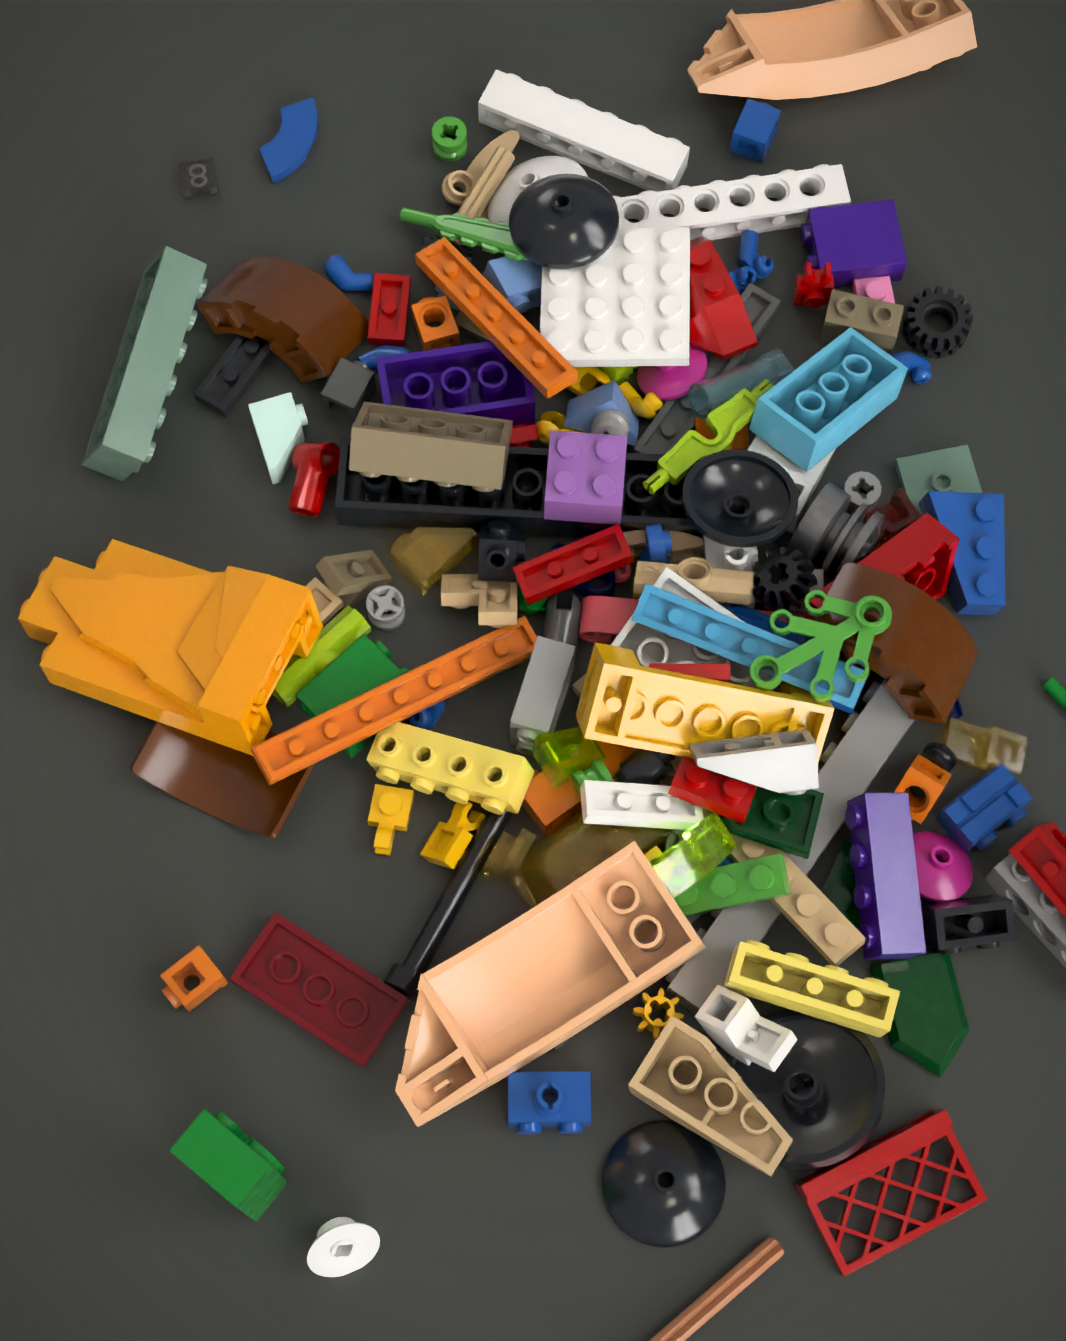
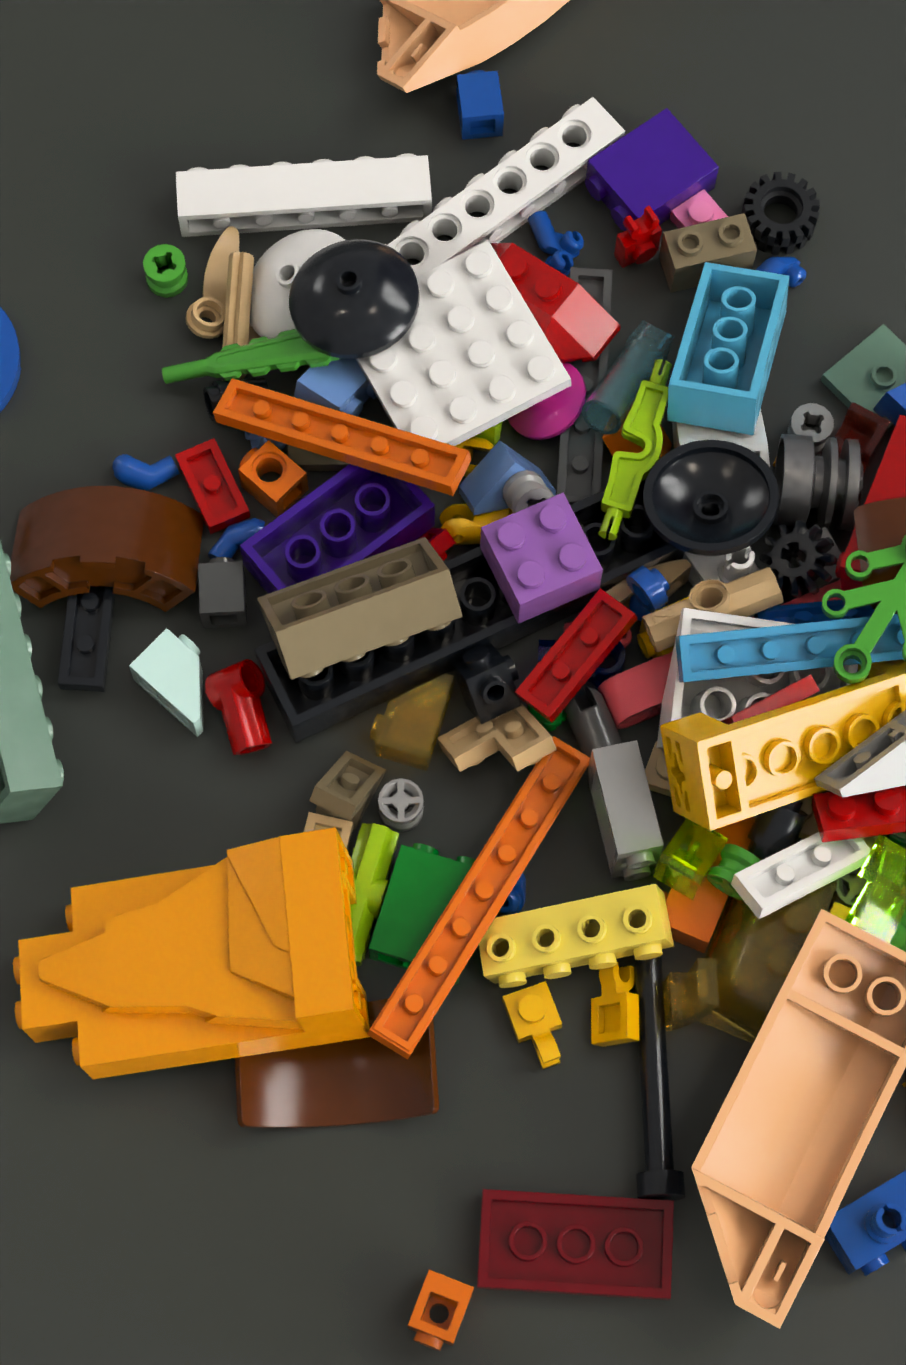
camera: 30 degrees left, 0 degrees up
(642, 407) = (538, 454): yellow arm -> none

